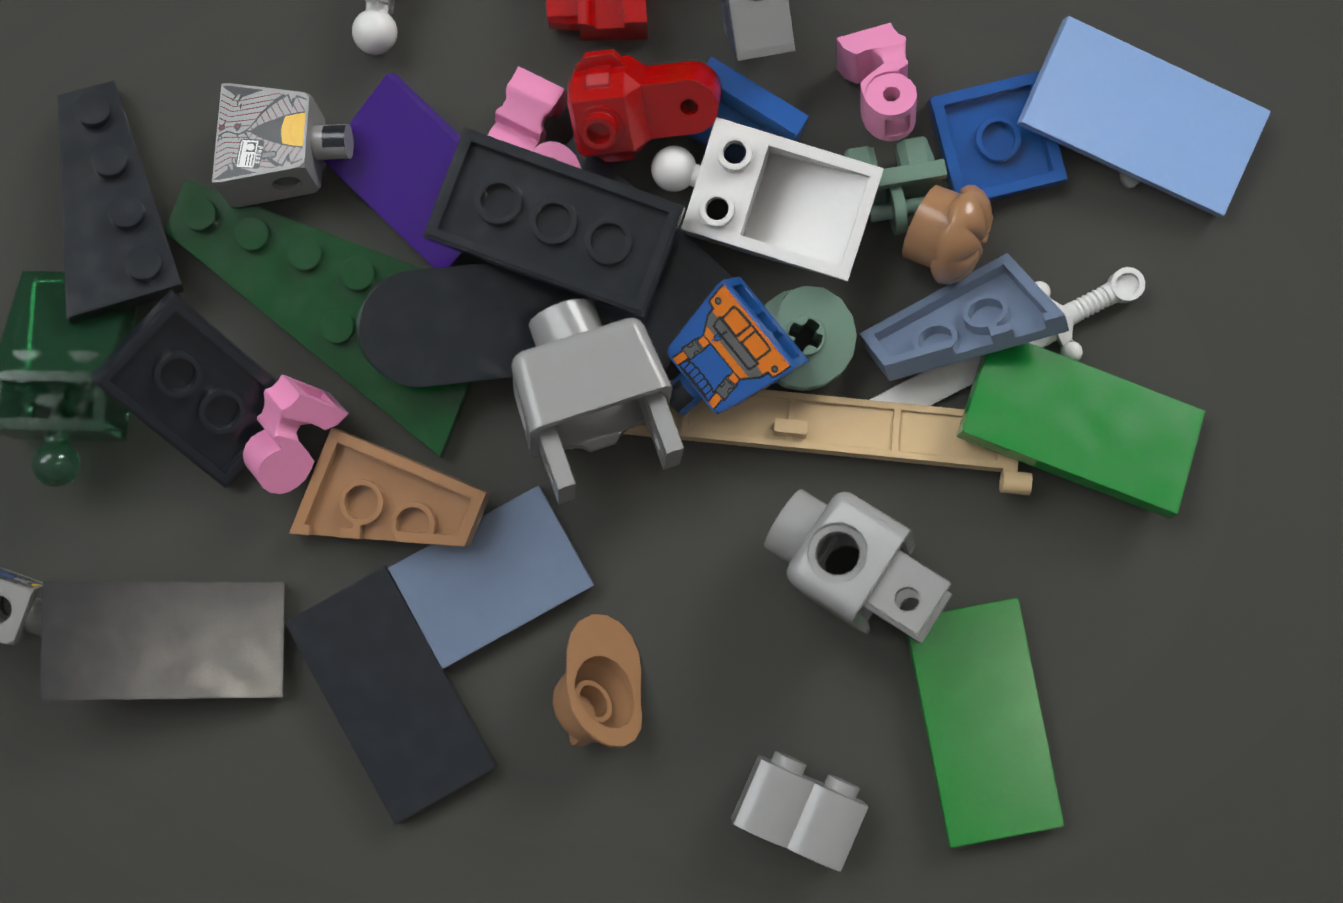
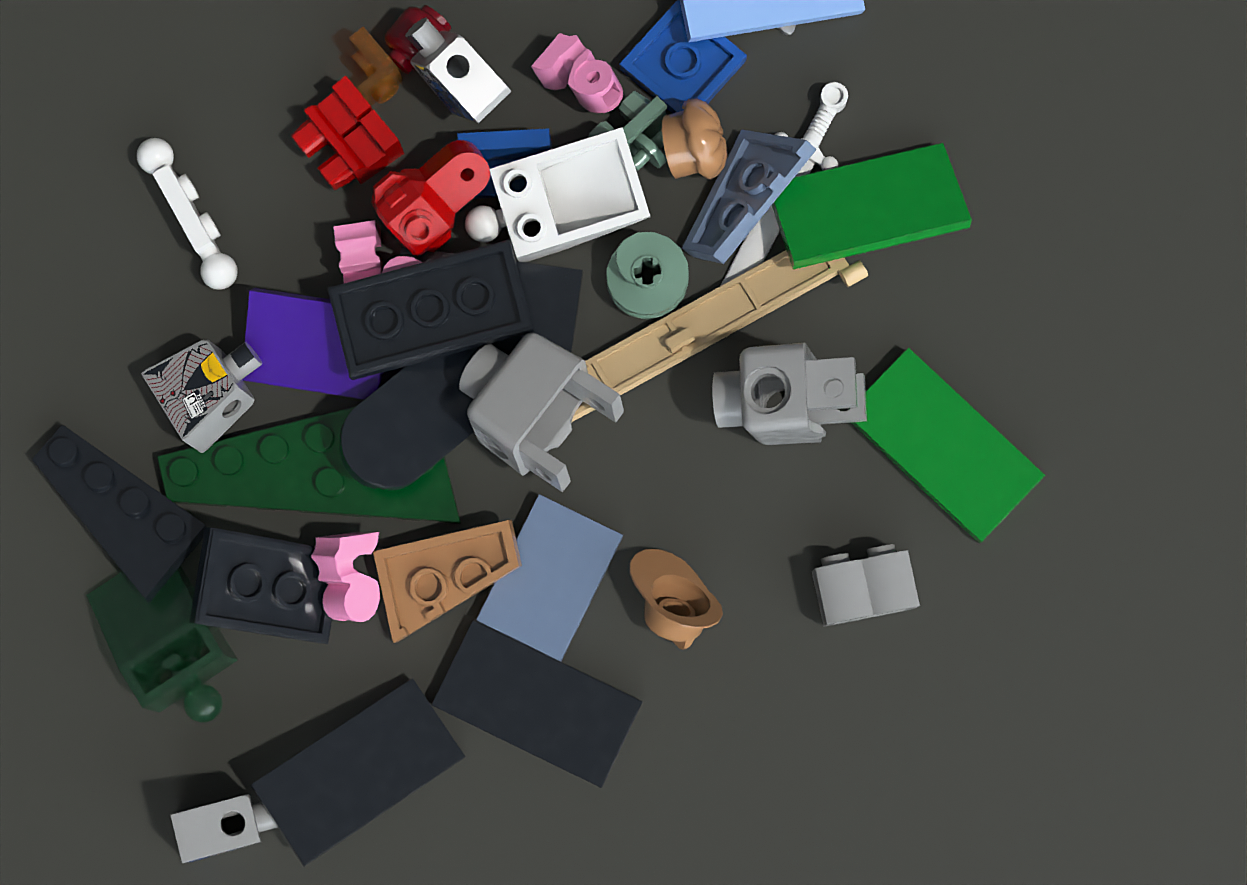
camera: 30 degrees left, 5 degrees down
(730, 351) = (605, 315): torso -> none

